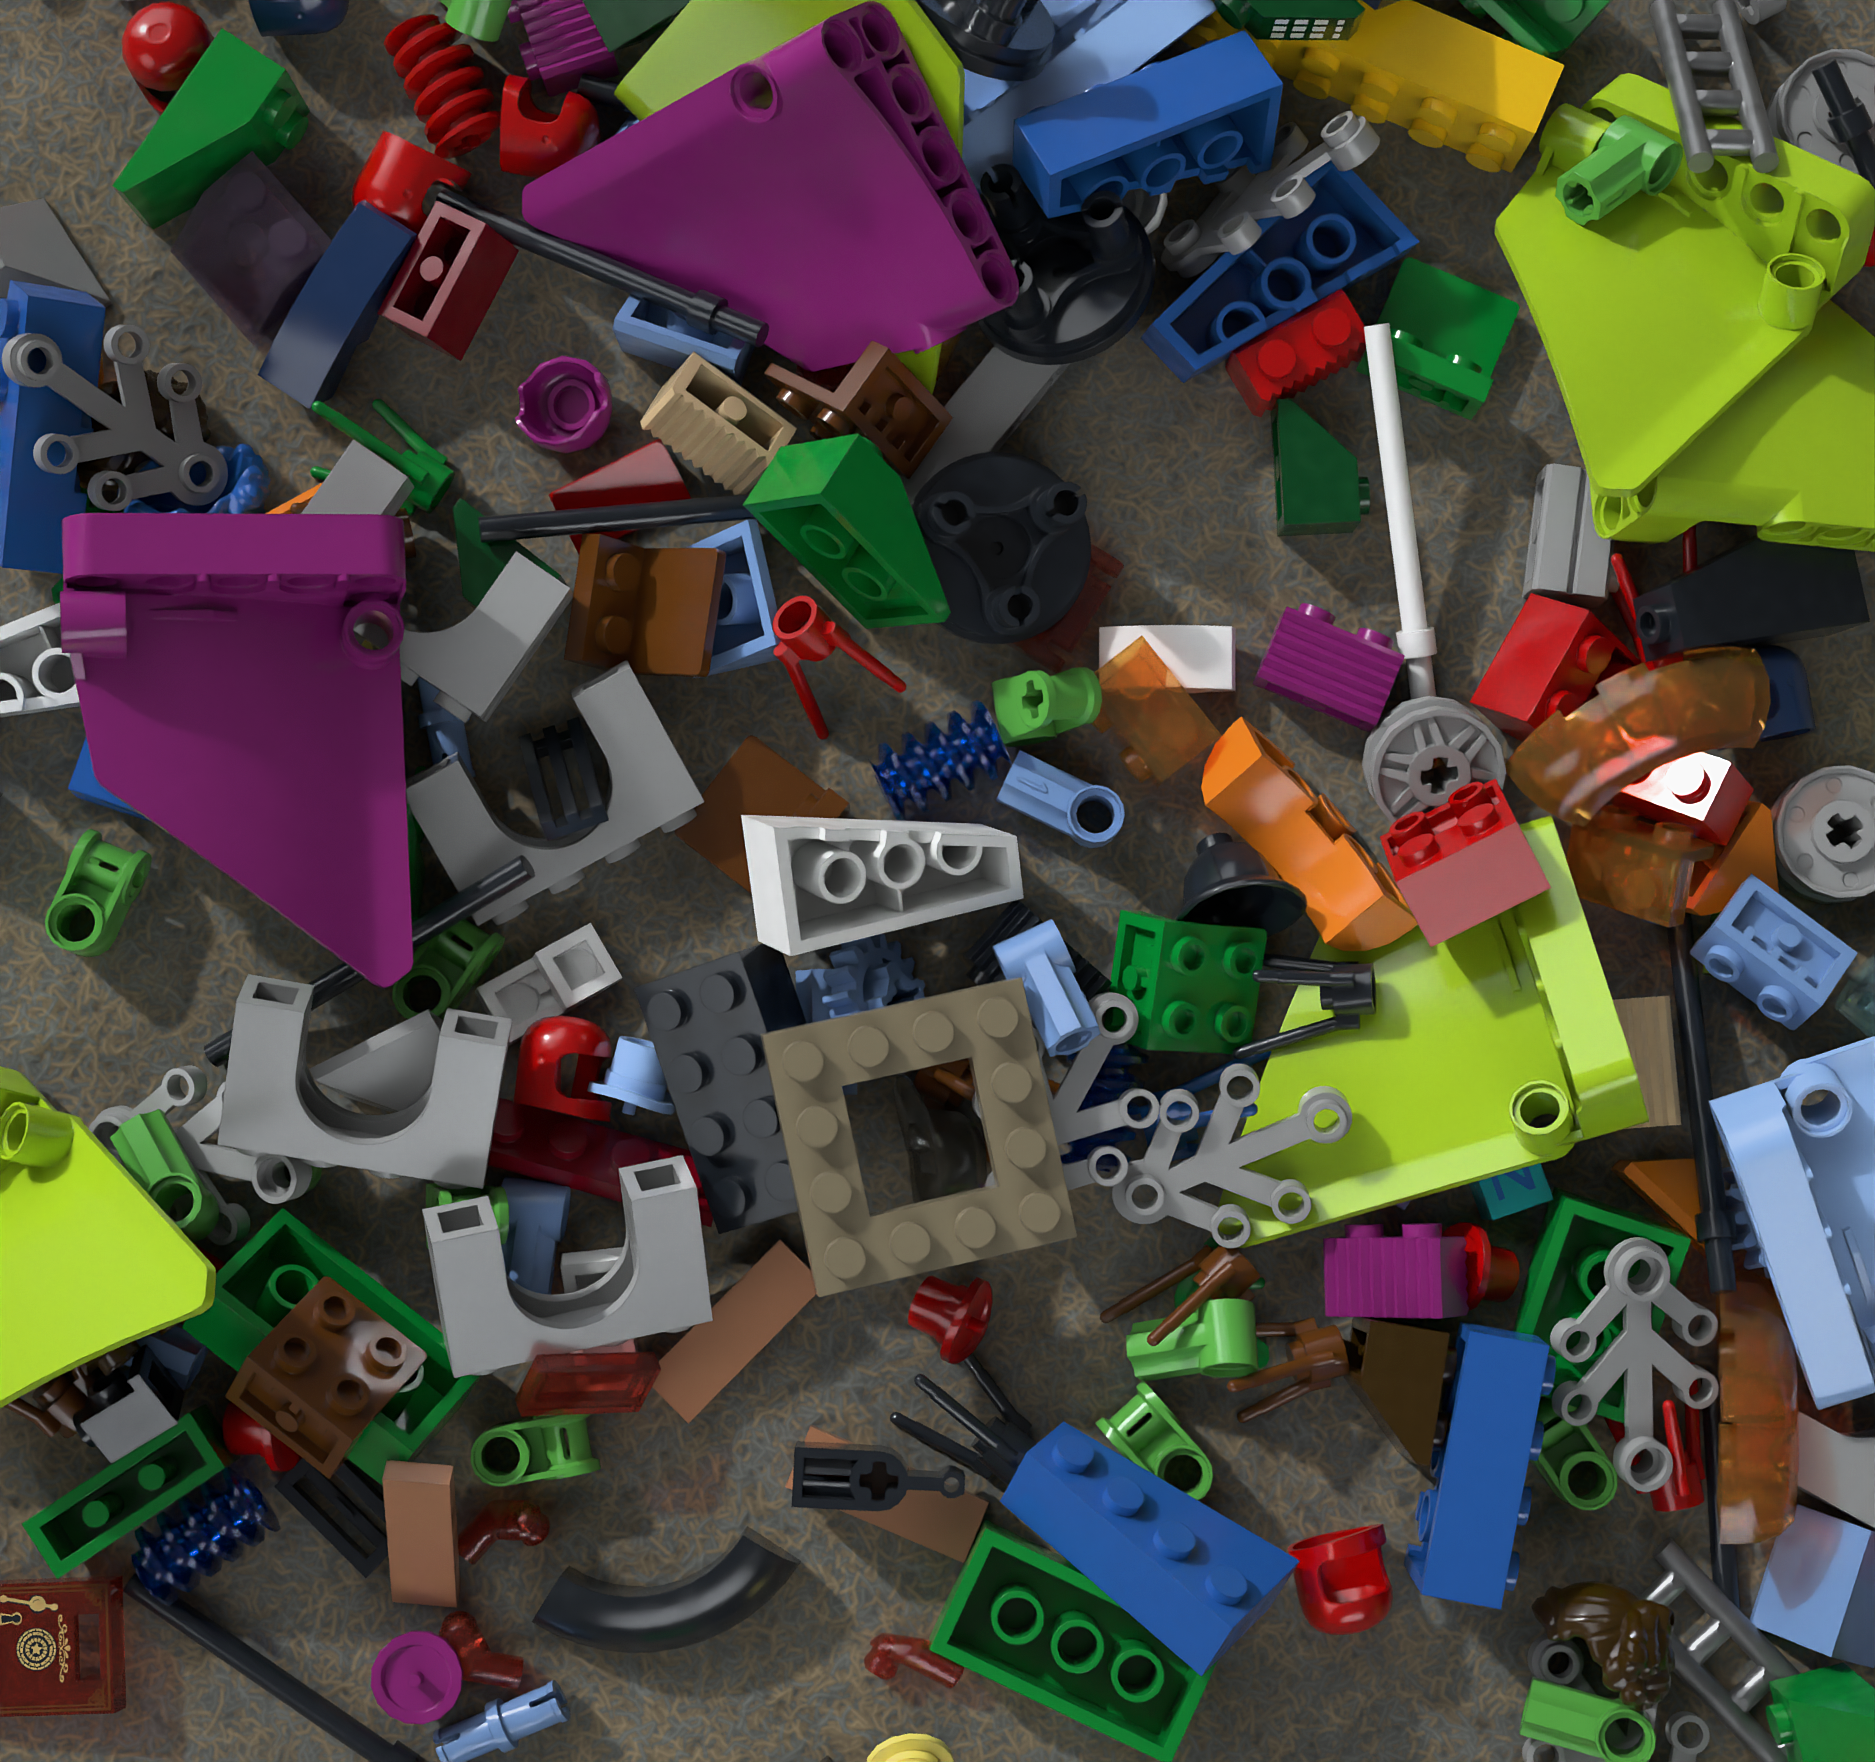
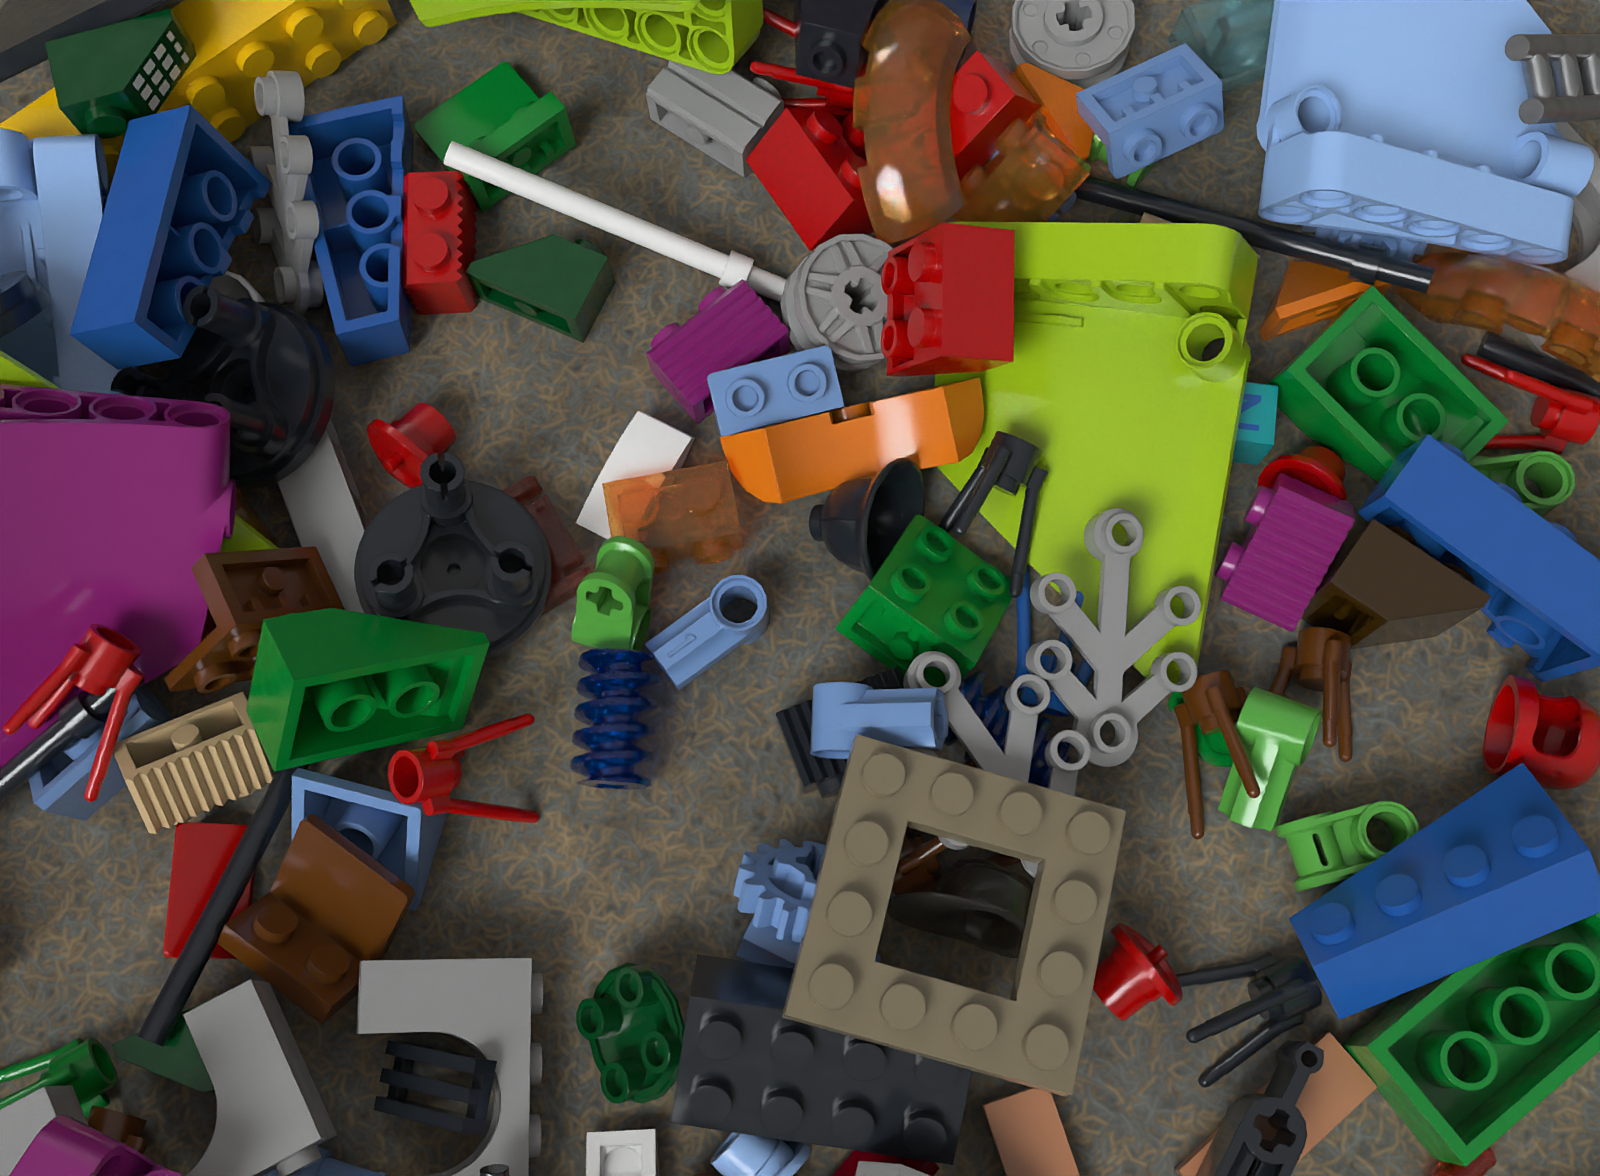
camera: 55 degrees left, 10 degrees down
(565, 405) = (94, 897): magenta hair -> none
(688, 921) = (633, 1034): none -> dark green dish
(753, 308) = (94, 664): none -> red plant
(753, 784) = (582, 913): reddish brown bracket -> none
(862, 877) = (680, 850): white wedge -> none
(1093, 441) = (409, 441): none -> red piece
(1307, 744) = (775, 390): none -> medium blue bracket
(1634, 1354) = (1389, 341): light grey plant -> none

